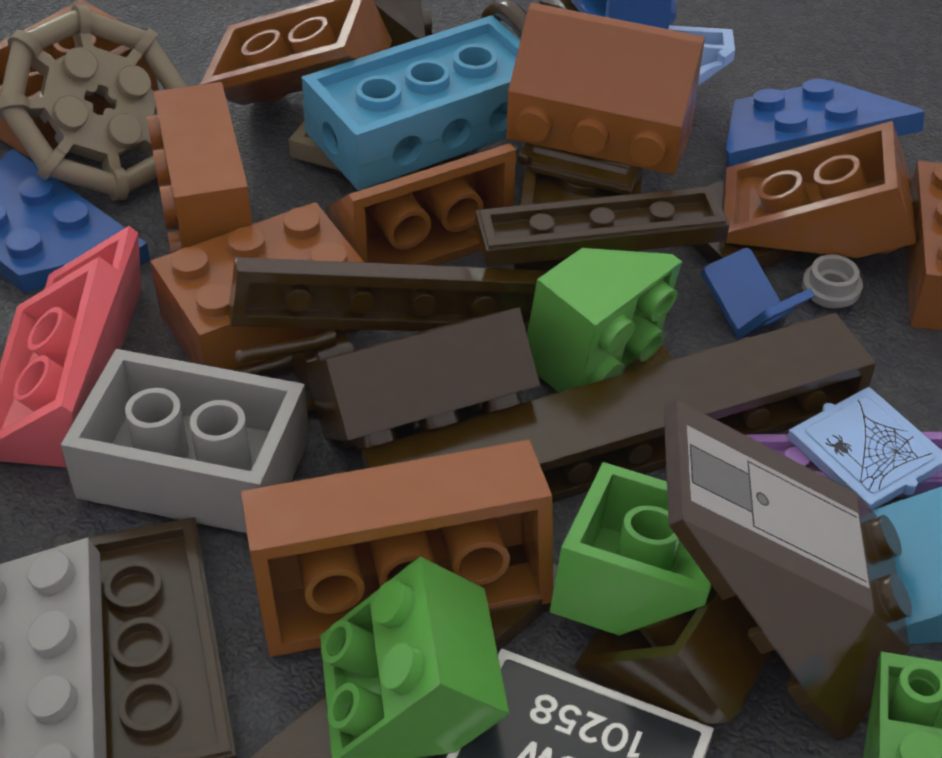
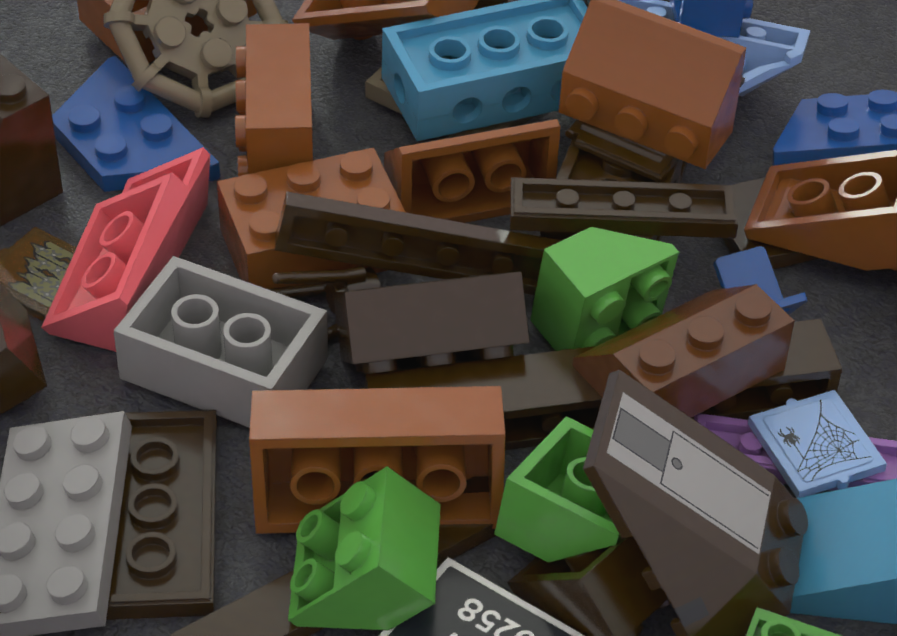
camera: 10 degrees right, 0 degrees up
(725, 362) = (698, 349): none -> reddish brown slope
(833, 281) = (838, 289): light grey plate -> none

